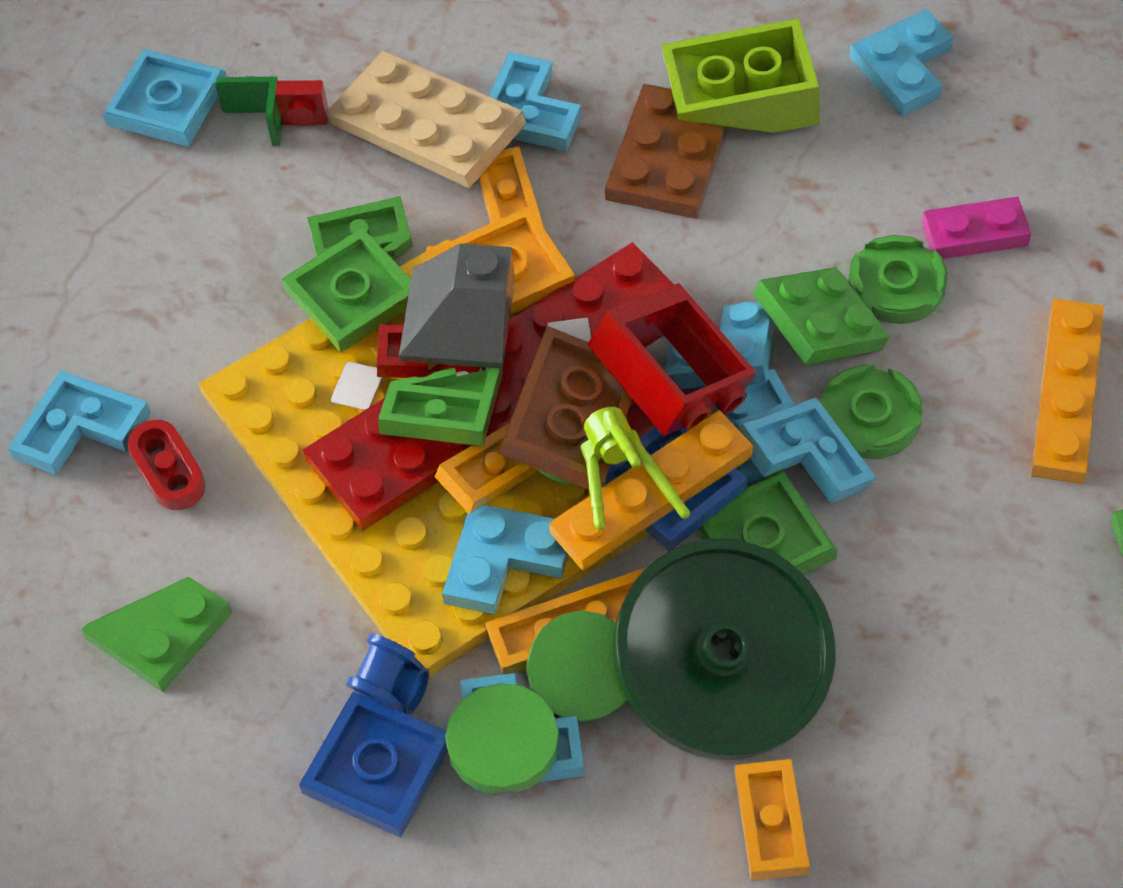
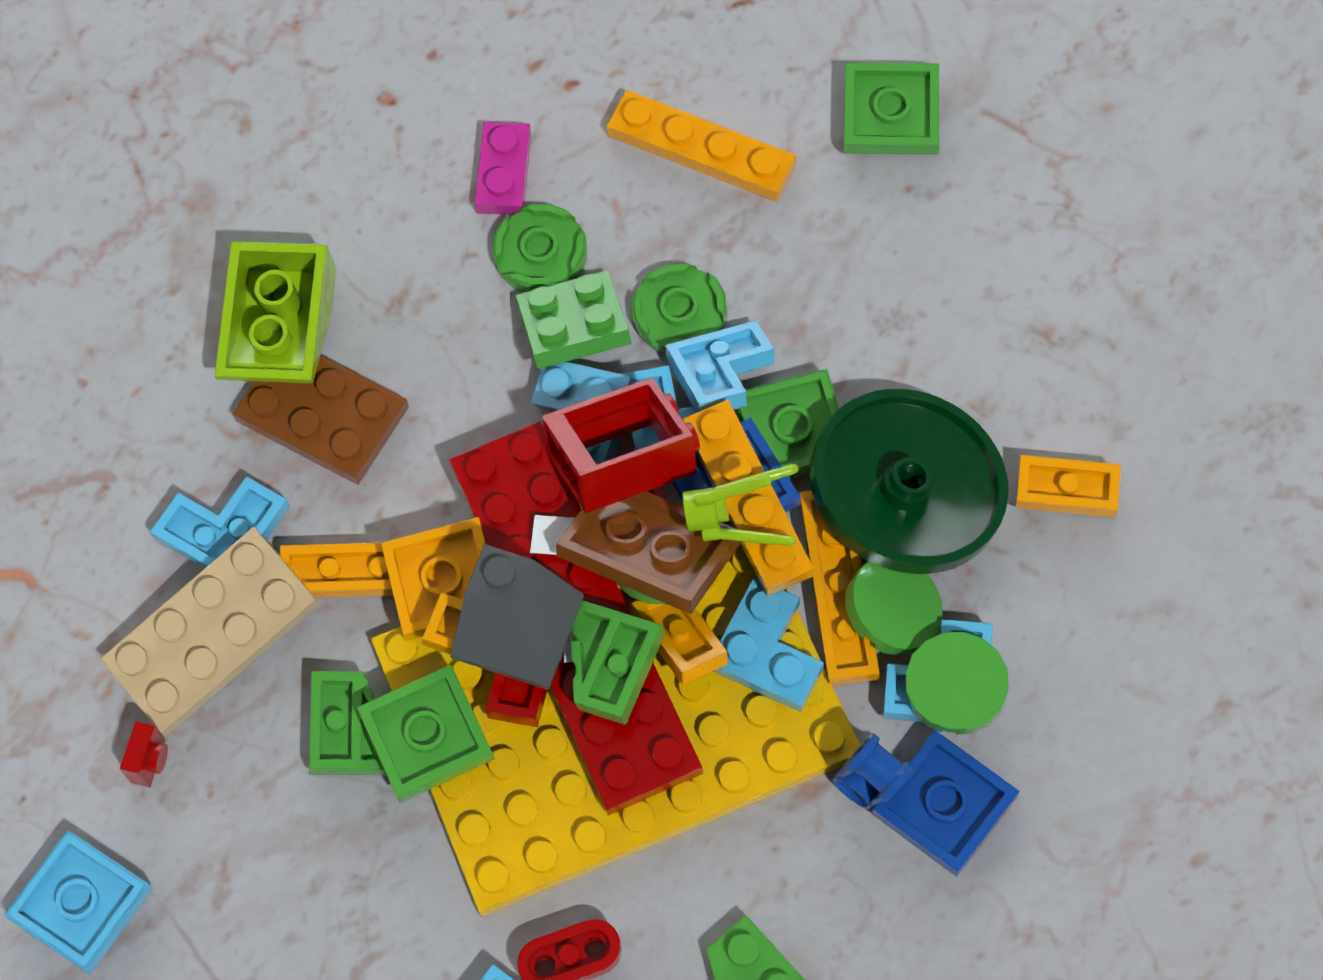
camera: 75 degrees left, 10 degrees up
(252, 96) = (111, 802): green bracket -> none
(356, 386) = (534, 752): white sticker -> none
(896, 59) = (281, 185): medium azure plate -> none

